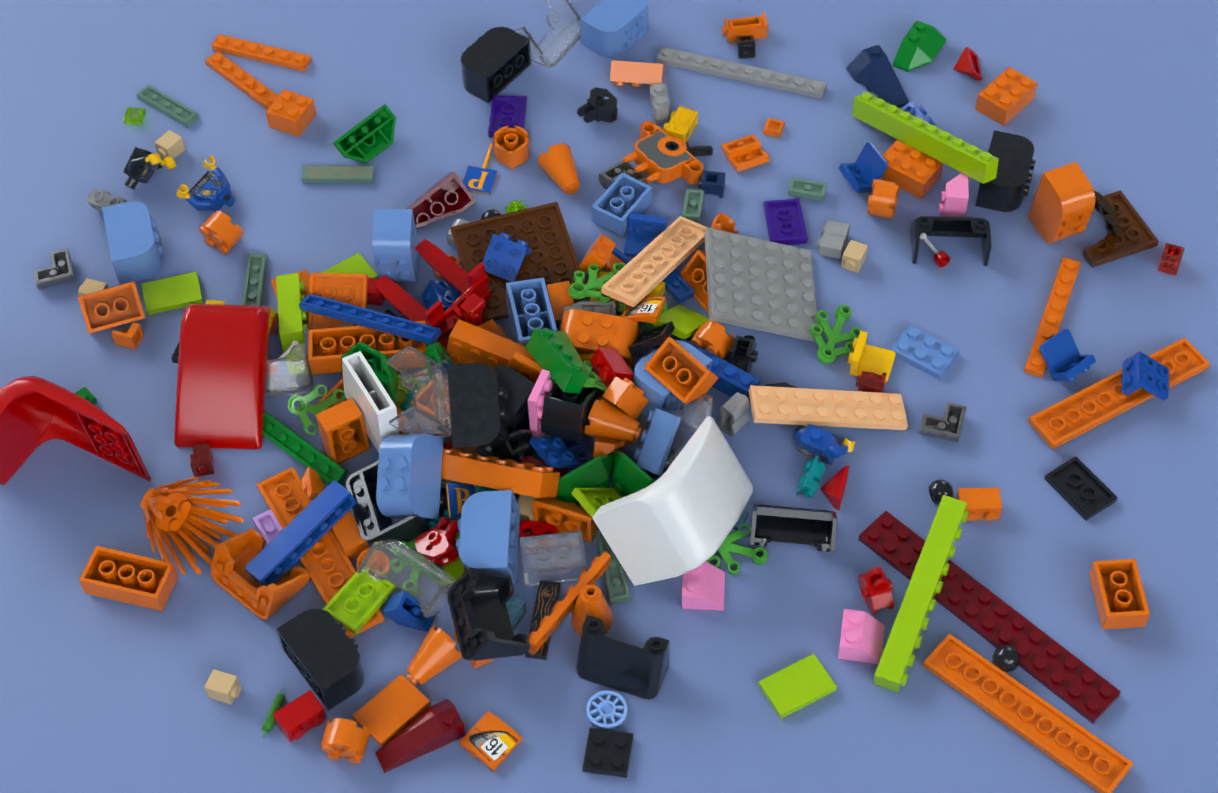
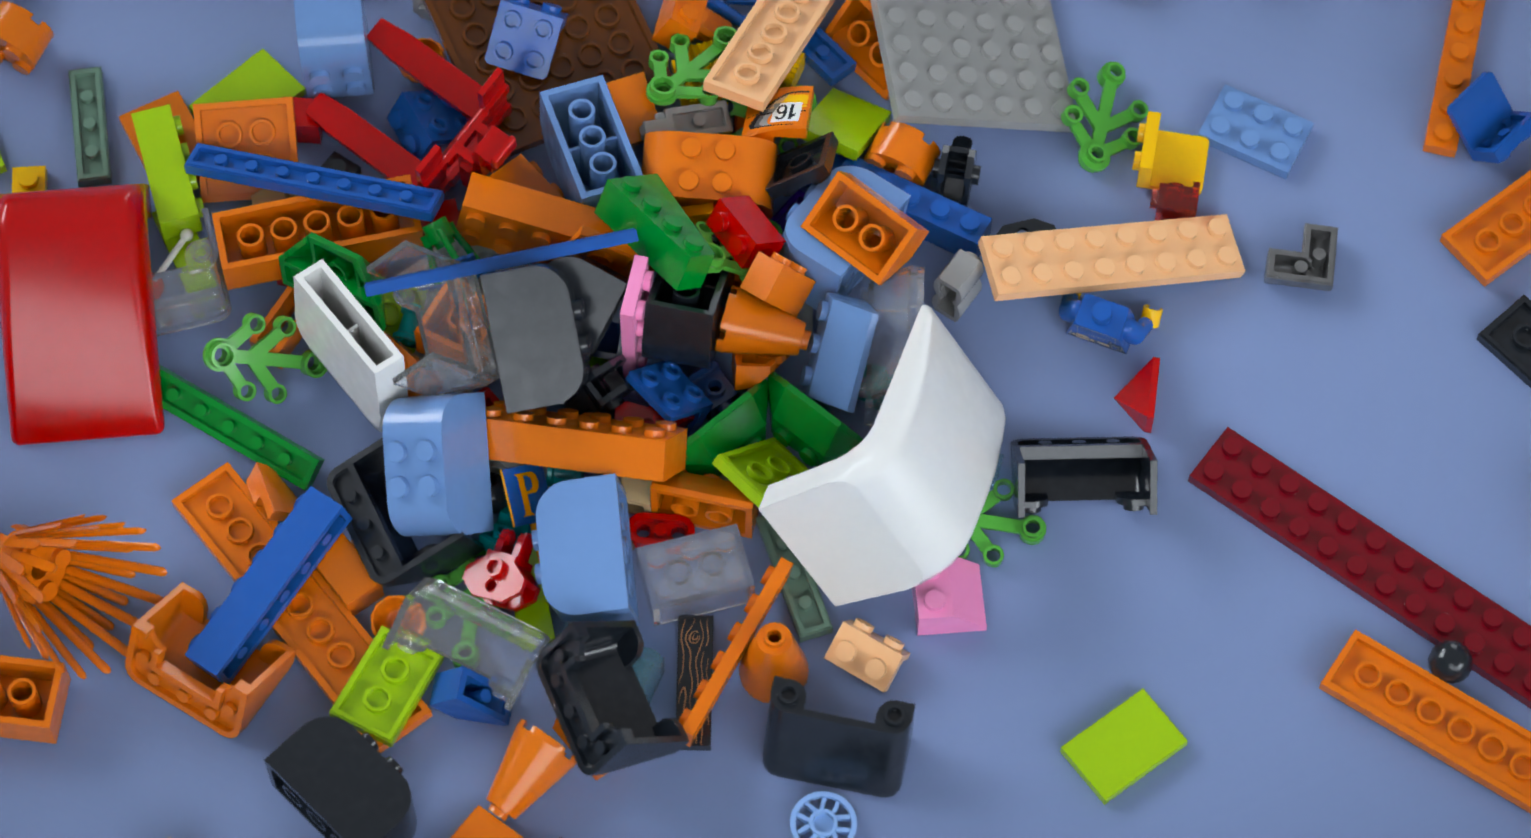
camera: 10 degrees left, 10 degrees up
(202, 460) = (68, 467): clear red brick -> none
(267, 525) = (207, 575): lavender plate -> none
(343, 431) = (305, 392): orange brick -> none
(440, 367) = (500, 262): none -> blue tile
(648, 614) = (867, 653): none -> light nougat bracket
(806, 482) = (1099, 368): teal hinge -> none
(860, 637) = (1214, 653): bright pink slope -> none
(876, 590) = (1230, 570): red hinge -> none
(920, 594) = (1303, 568): lime brick -> none
(938, 489) = (1313, 384): black piece -> none
(981, 503) = (1377, 398): orange brick -> none

